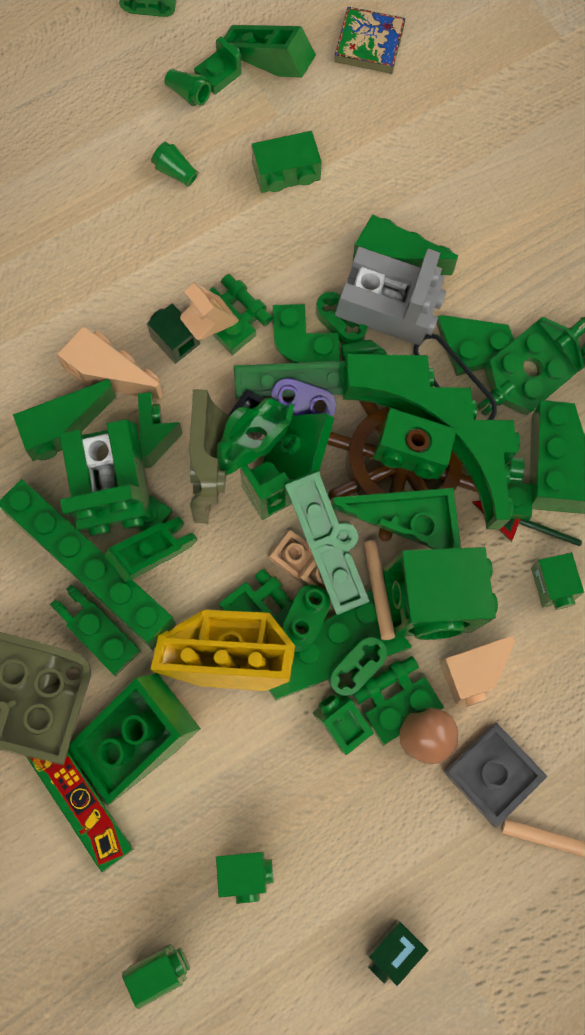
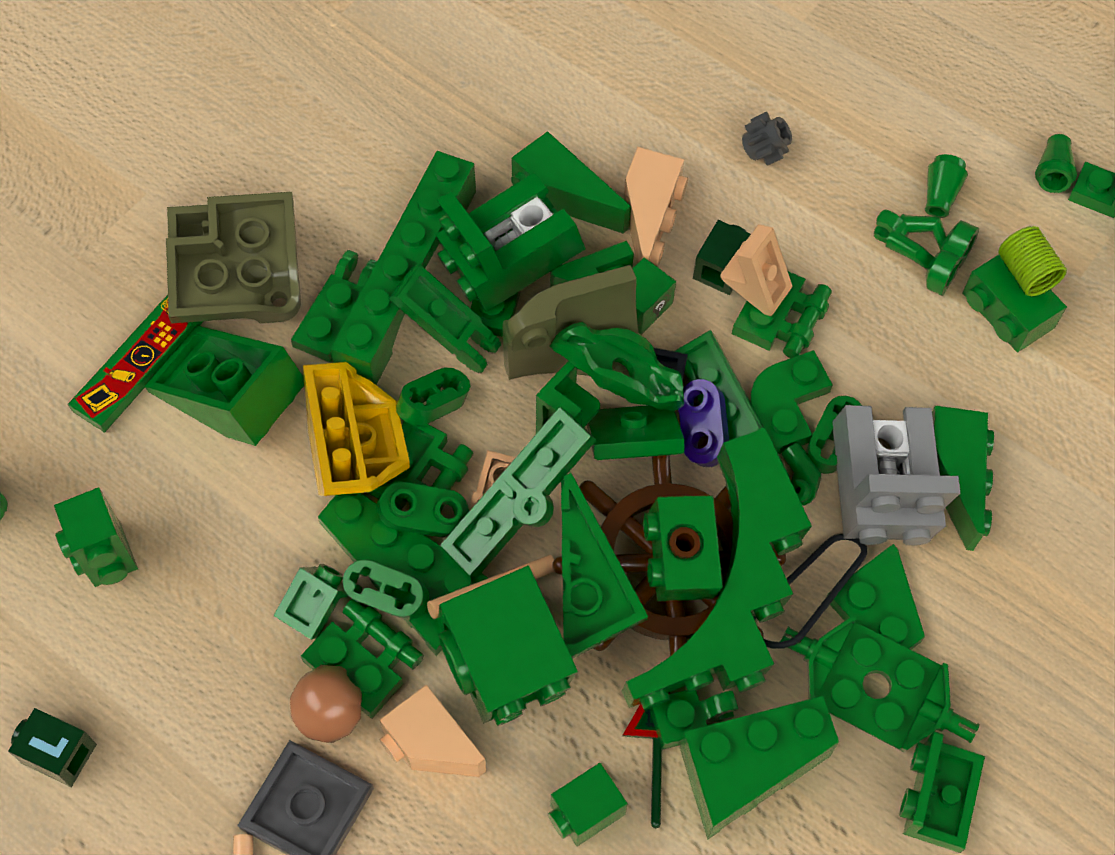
camera: 70 degrees right, 10 degrees down
(84, 263) = (767, 138): none -> dark grey gear
(177, 399) = (653, 293): none -> green brick
(205, 582) = (427, 389): none -> green beam
(228, 180) = (953, 248): none -> green piece
(276, 132) = (1032, 261): none -> lime piece

